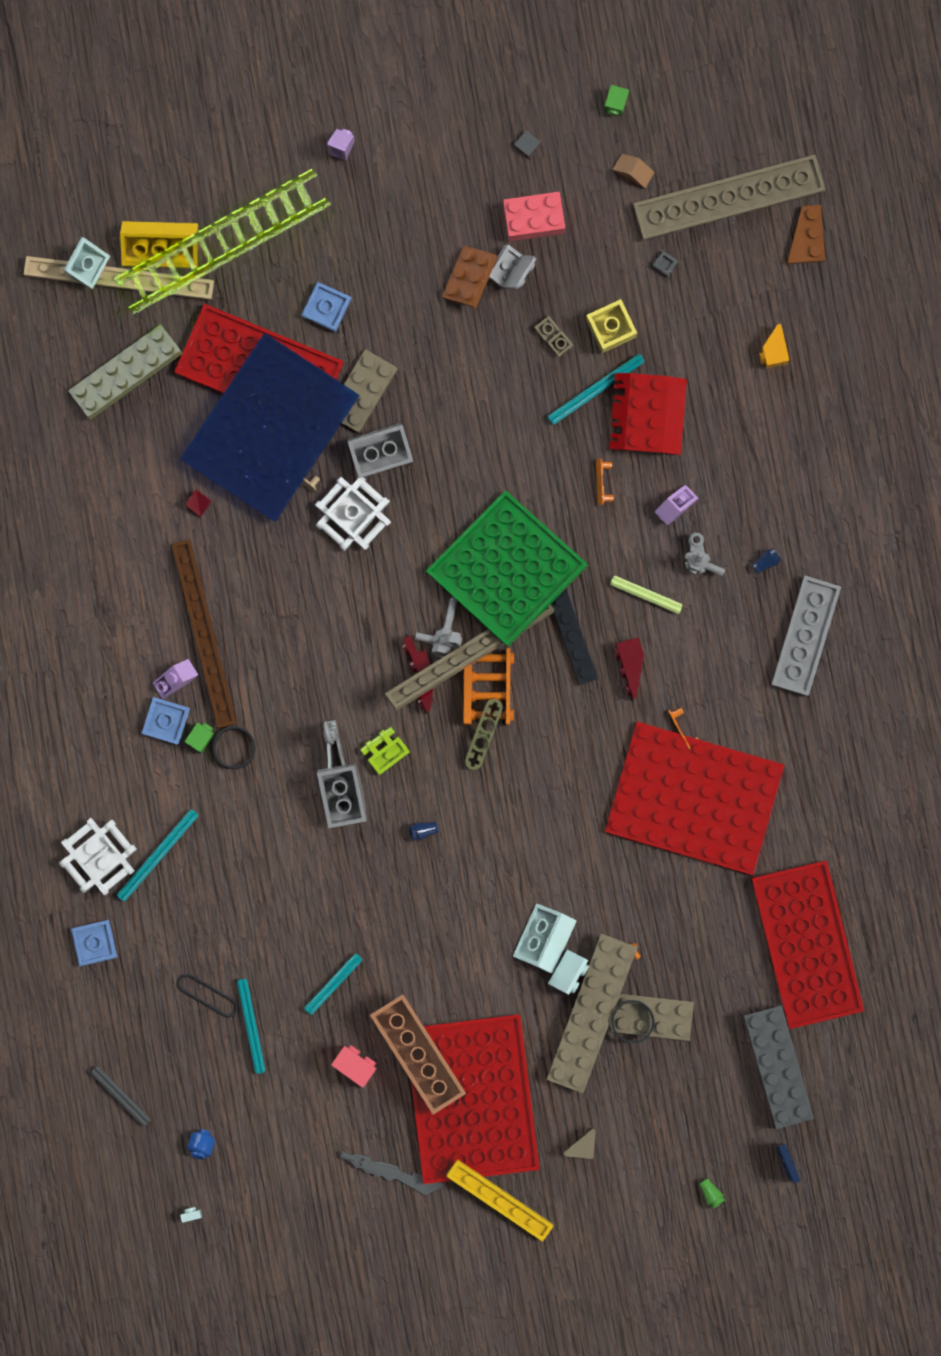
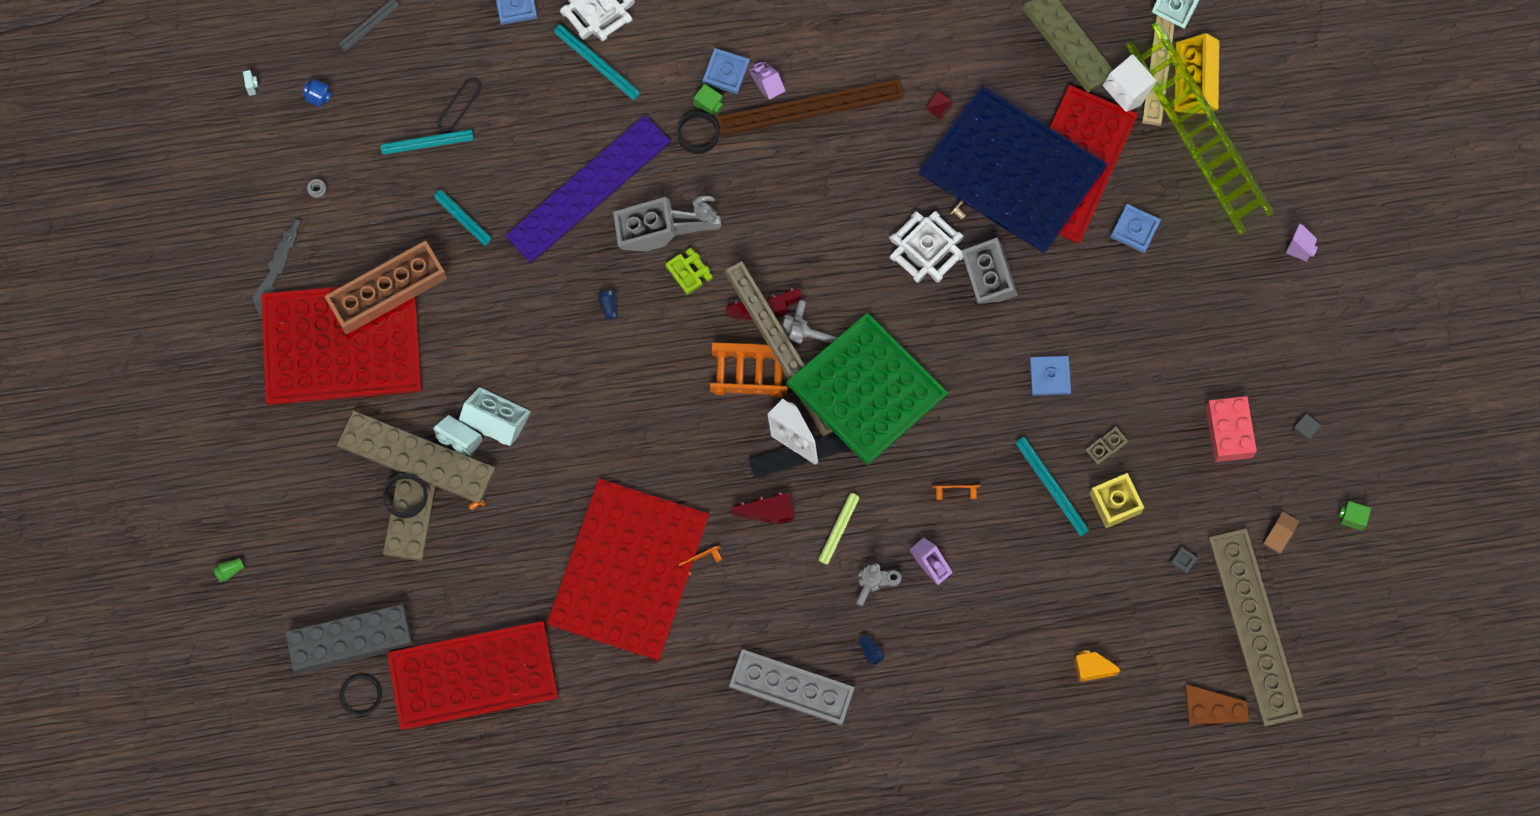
camera: 90 degrees right, 10 degrees down
(175, 310) = (1129, 83): none -> white slope
(297, 857) = (587, 189): none -> dark purple plate
(300, 1141) = (316, 183): none -> light grey plate
(354, 1066) = (379, 230): coral brick -> none
(369, 380) = (1056, 266): dark tan plate -> none
(469, 276) = (1167, 364): dark orange plate -> none
(482, 733) = (700, 366): olive beam -> none
(483, 391) = (1050, 375): none -> medium blue plate
(500, 1200) = (238, 363): yellow plate -> none
(511, 268) = (1176, 402): light grey bracket -> none
(551, 642) = (791, 430): none -> white slope
(583, 1147) = (284, 447): dark tan slope -> none
(649, 413) = (1025, 536): red slope -> none
(788, 1163) = (250, 643): dark blue tile -> none
(847, 1056) = (374, 706): none -> black tyre

